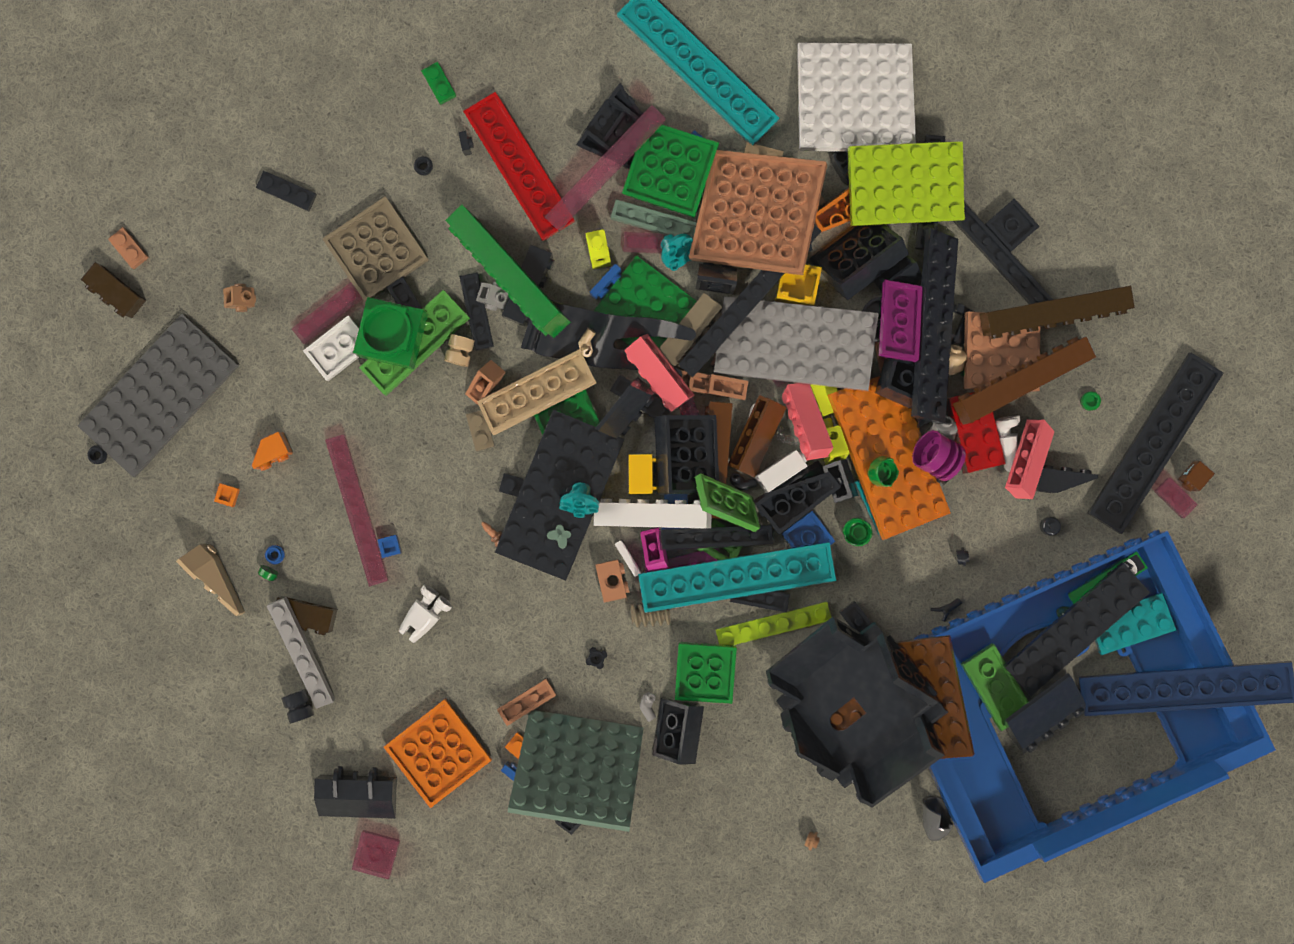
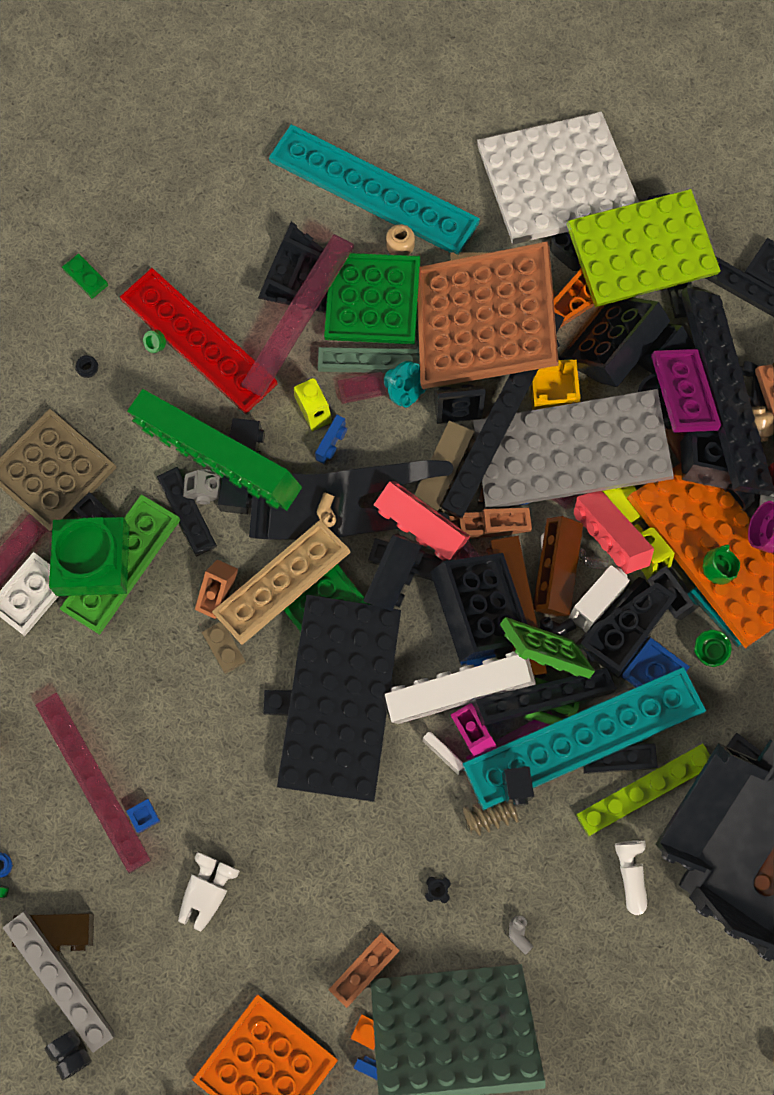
camera: 15 degrees left, 15 degrees down
(459, 350) = (176, 558): tan wheel -> none
(466, 143) = (131, 328): black plate -> none
(482, 158) = (154, 341): none -> green tile
(492, 532) = (267, 765): nougat bar -> none
(559, 535) = (353, 744): sand green piece -> none
(579, 501) = (367, 693): teal plate -> none
(608, 591) = (432, 800): nougat brick -> none
(641, 474) = (432, 645): yellow container -> none
(647, 294) = (380, 440): green plate -> none
(674, 604) = (518, 786): none -> black brick
(678, 731) = (567, 956): black slope -> none
(705, 672) = (580, 870): green plate -> none
(707, 115) = (400, 240): none -> tan head
(743, 685) = (632, 875): none -> white piece

